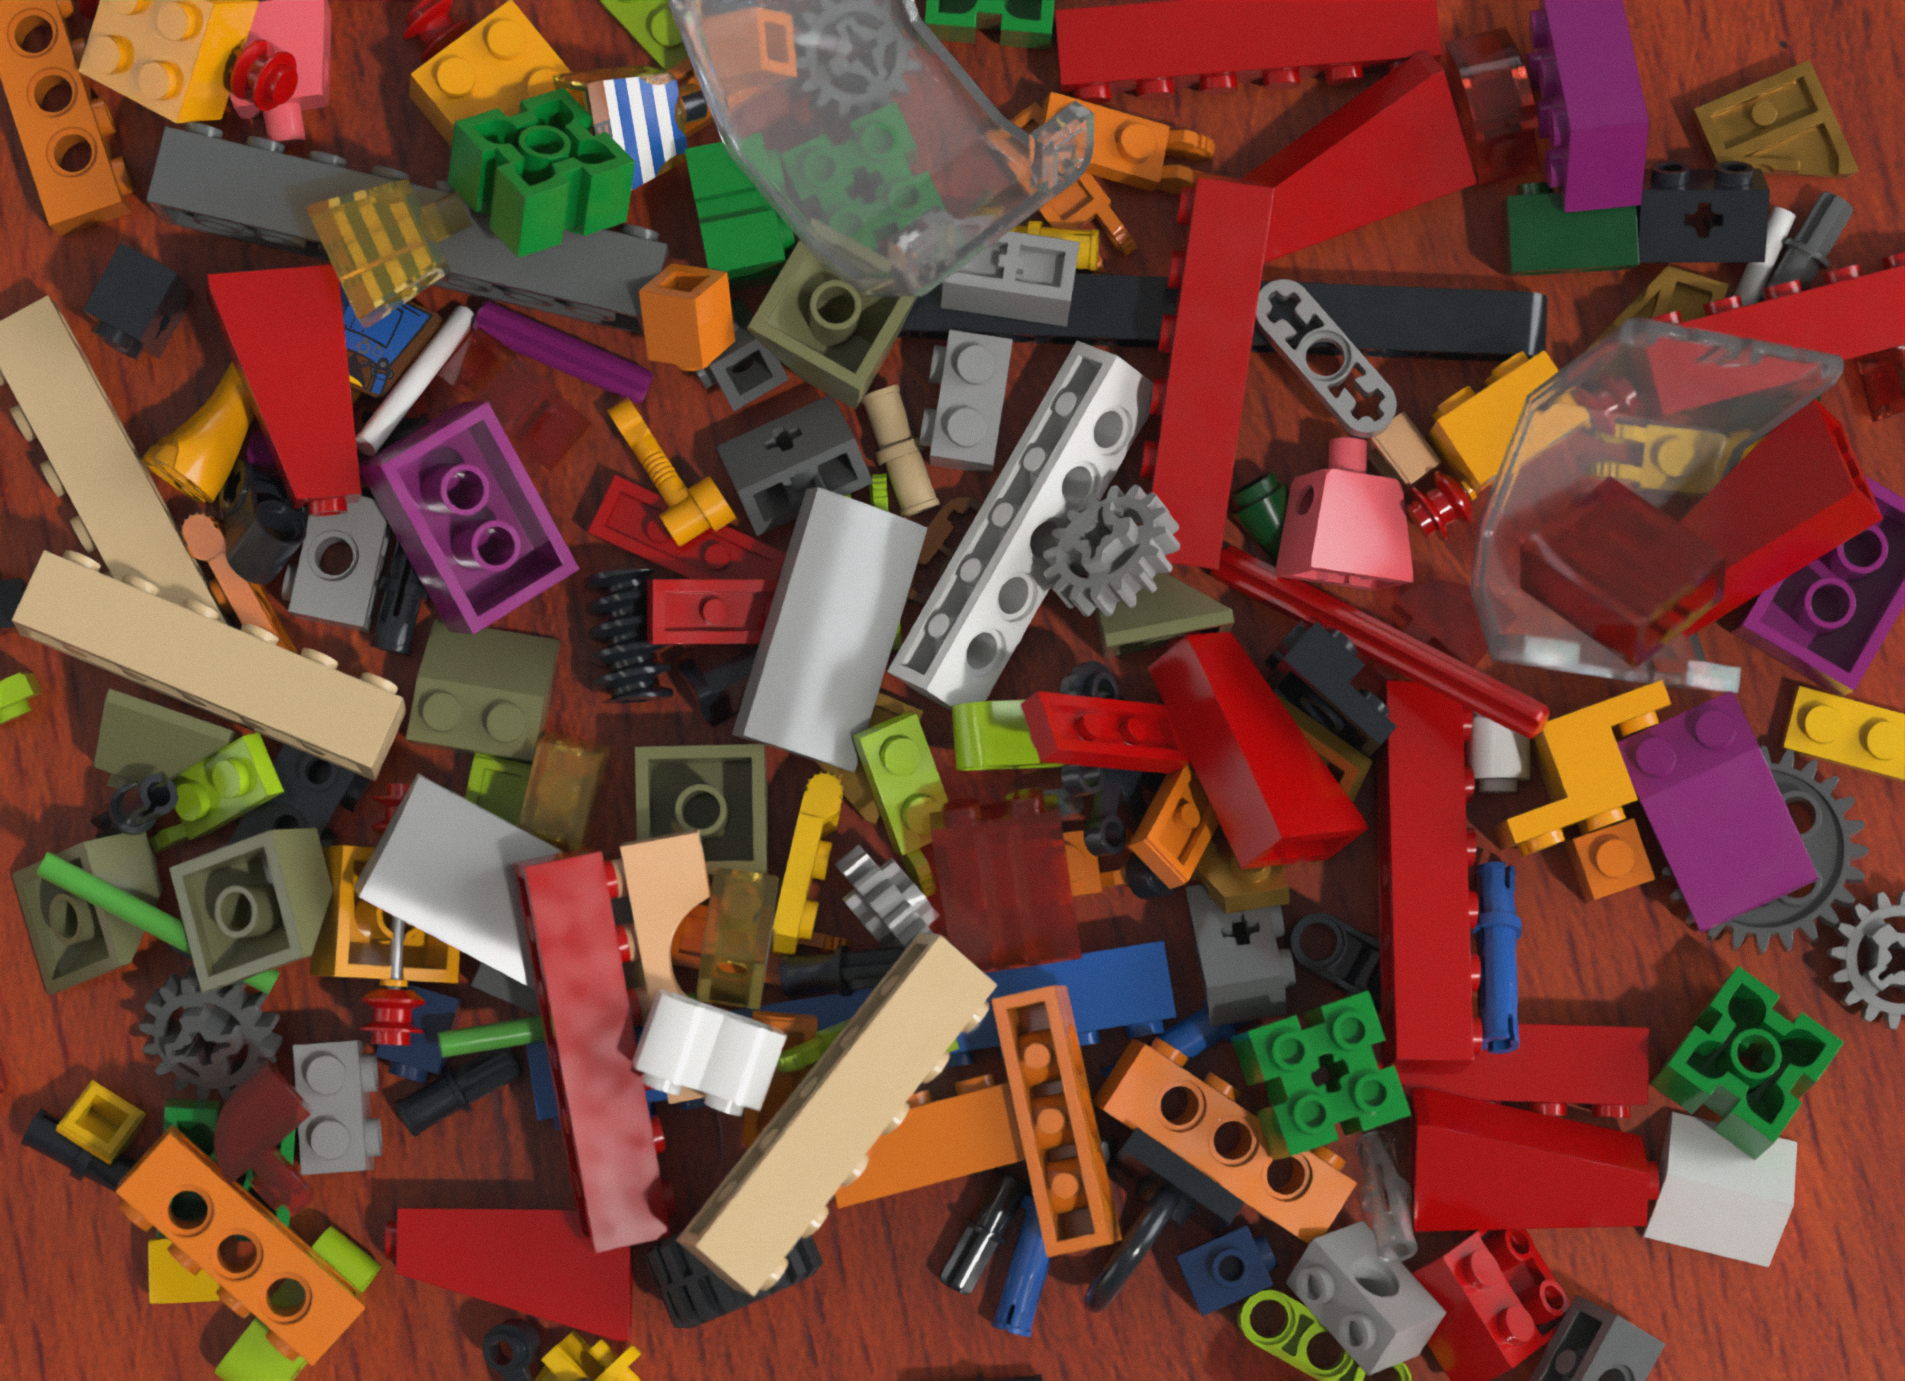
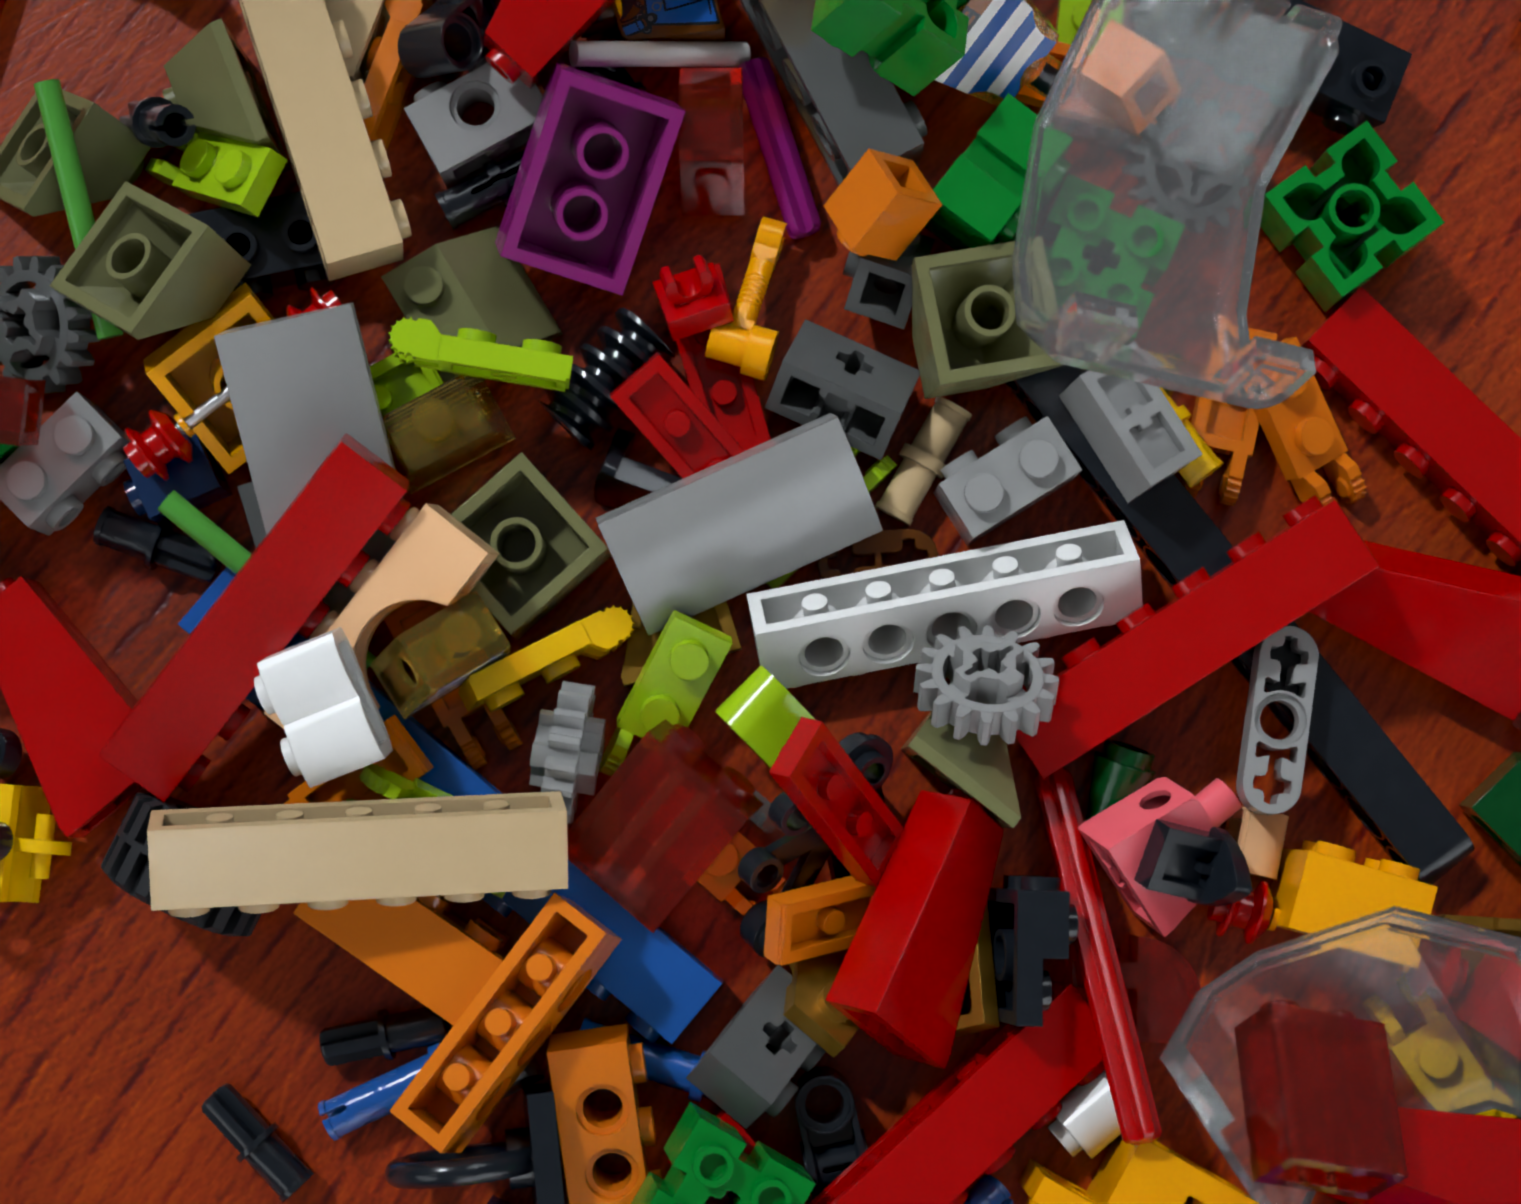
camera: 50 degrees right, 0 degrees up
(537, 714) = (479, 356): none -> lime hinge
(629, 519) = (692, 299): none -> red tile
(836, 971) = (483, 754): black axle -> none
(1377, 513) = (1194, 865): none -> black tile

